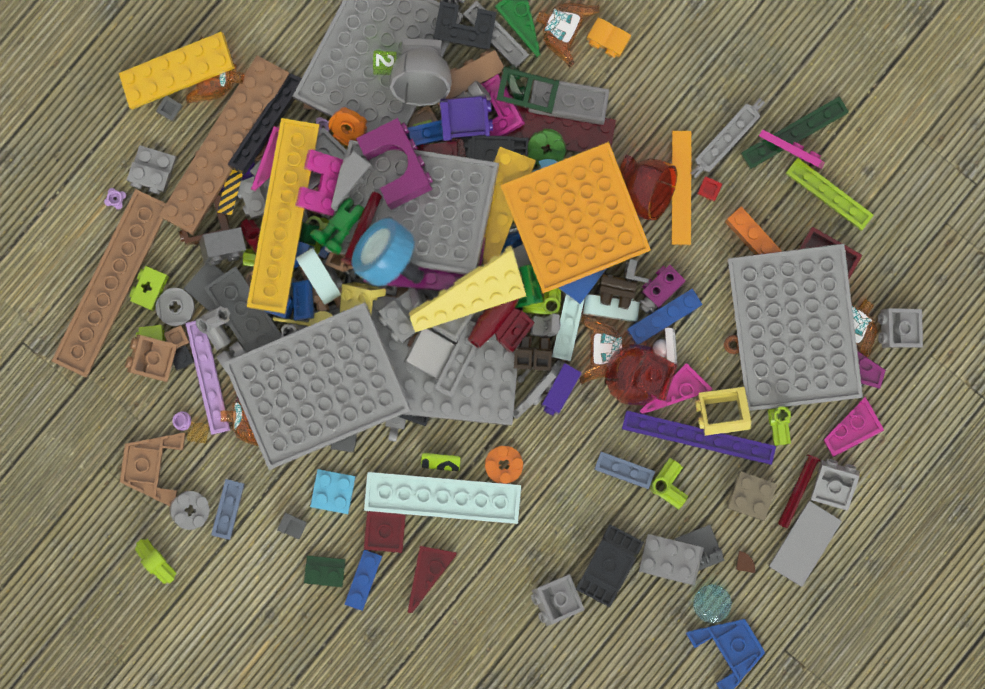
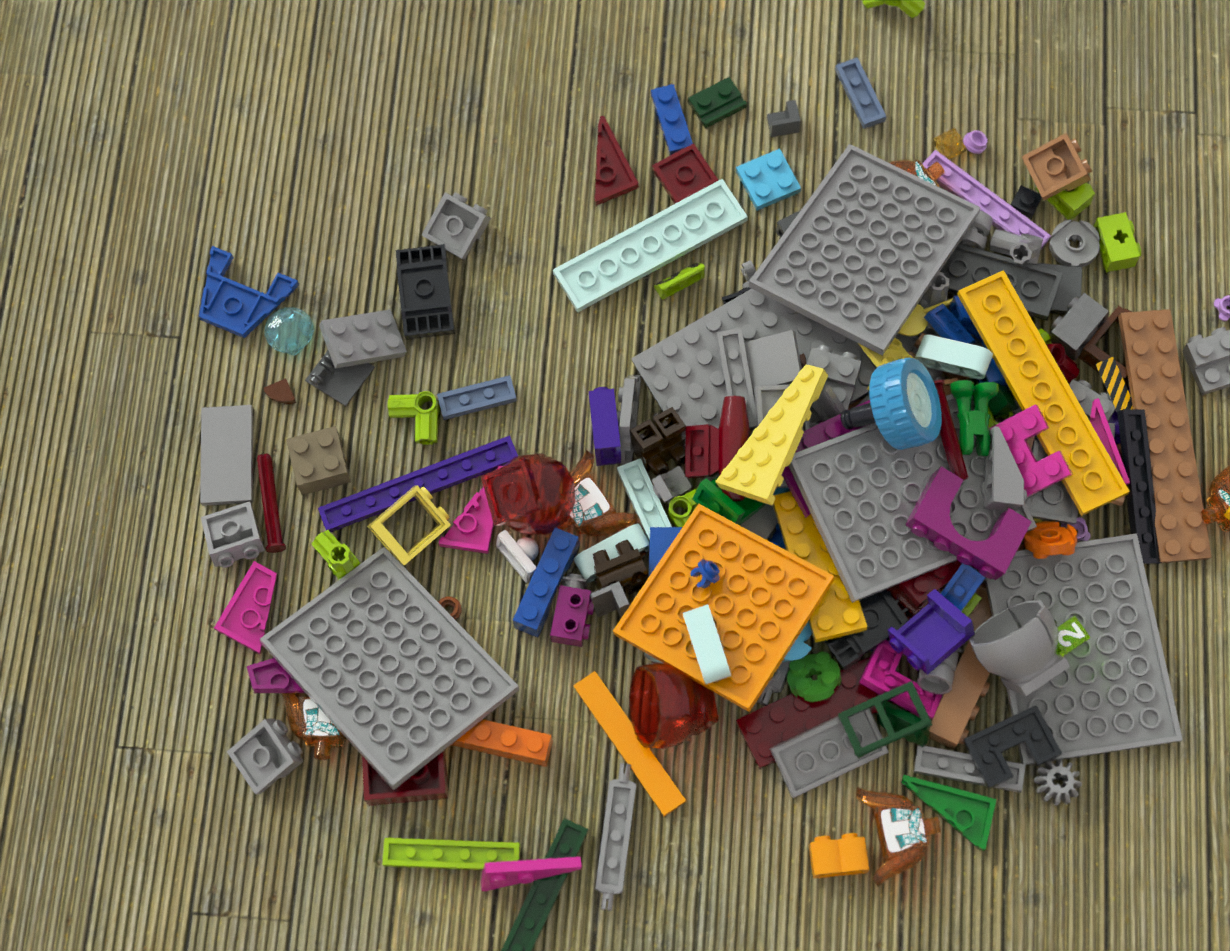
camera: 150 degrees right, 15 degrees down
(110, 284) = (1159, 221): medium nougat plate -> none
(143, 464) = (976, 75): medium nougat wing -> none
(177, 336) = (1047, 215): medium nougat plate -> none
(198, 503) = (885, 60): light grey plate -> none
(506, 475) = (610, 306): orange plate -> none
(571, 241) = (709, 573): none -> blue plate
(605, 196) = (706, 644): none -> light aqua beam
(709, 189) = (595, 763): red plate -> none

